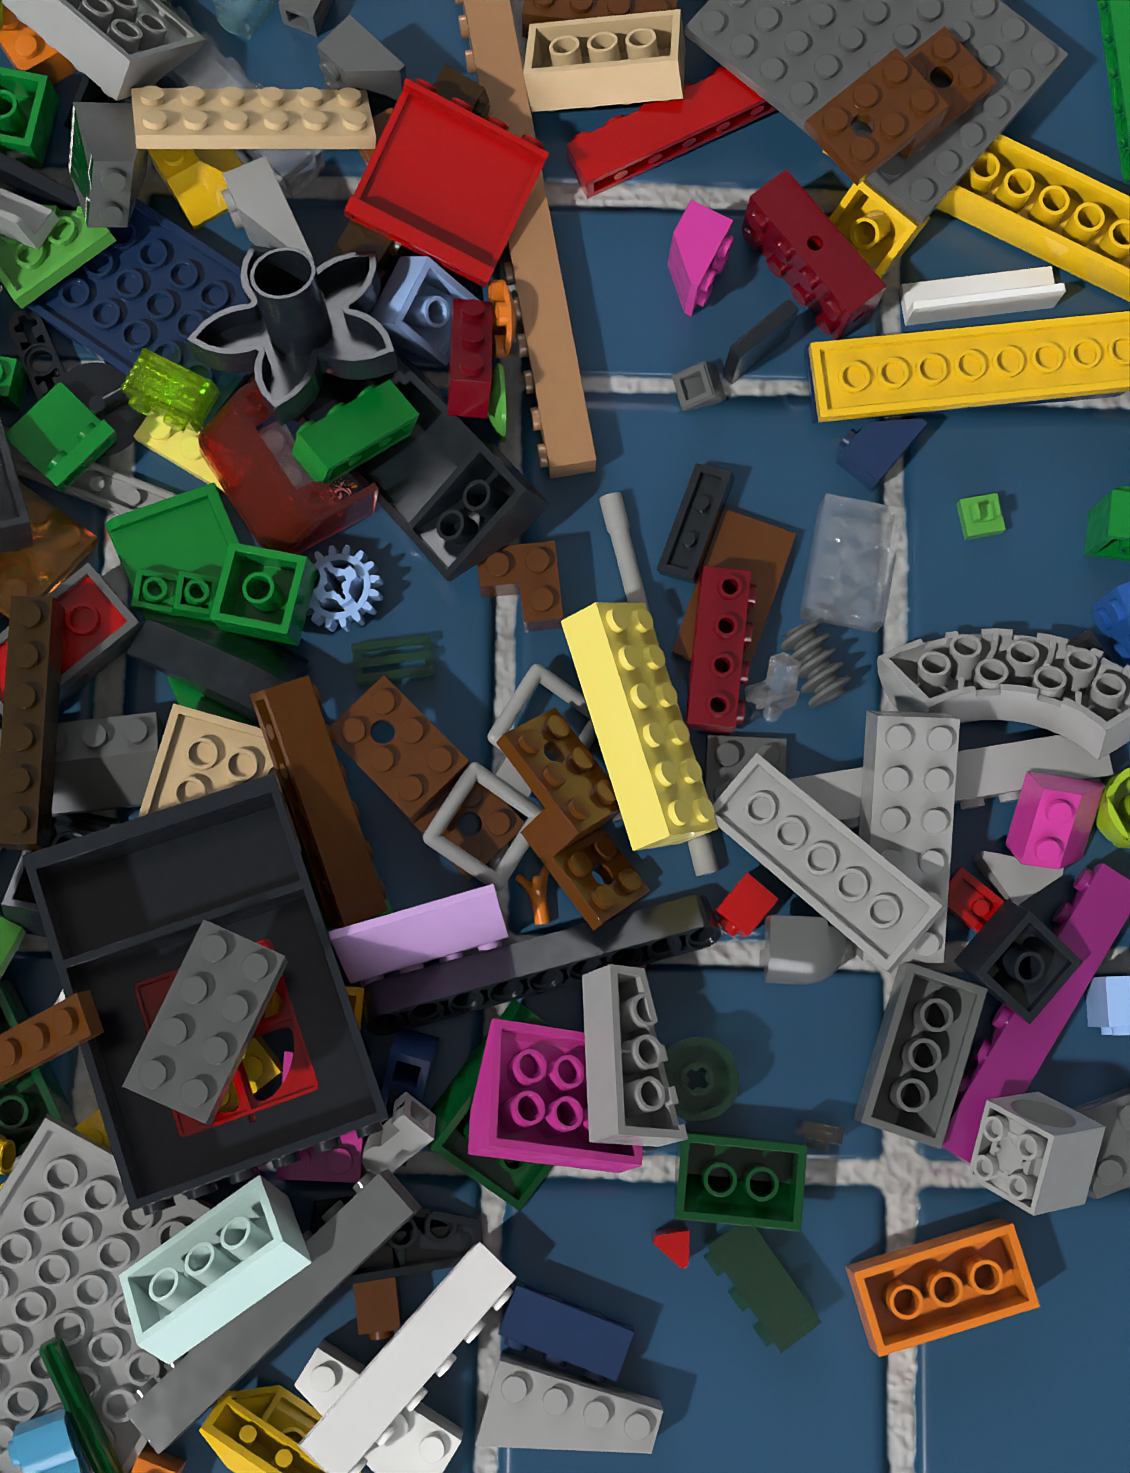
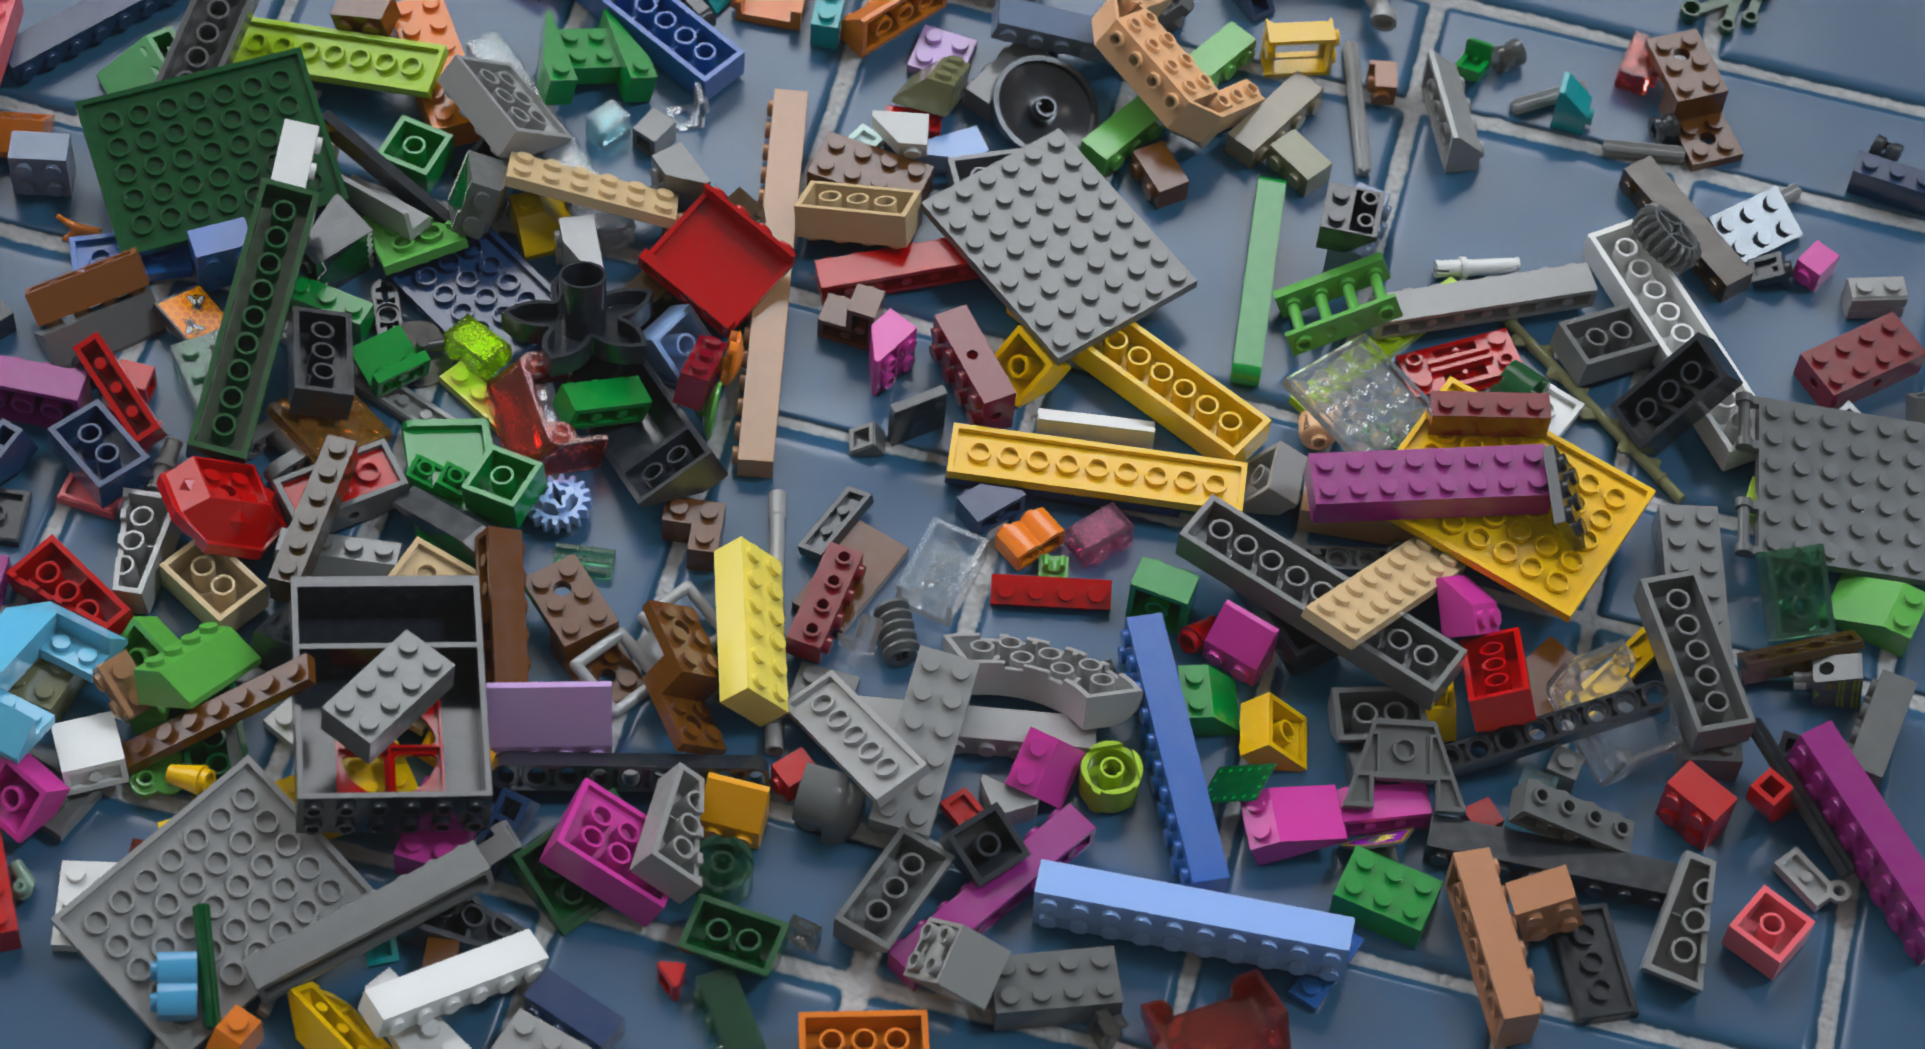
camera: 15 degrees right, 25 degrees down
(213, 1270) = (338, 872): light aqua brick -> none
(538, 895) = (643, 732): orange bar -> none
(637, 217) = (851, 319): none -> brick
(690, 991) = (735, 809): none -> light orange slope
(899, 105) = (1056, 277): reddish brown bracket -> none
(942, 480) = (1026, 539): none -> orange brick
(989, 551) = (1050, 592): none -> red plate
(1028, 452) = (1099, 535): none -> clear pink brick

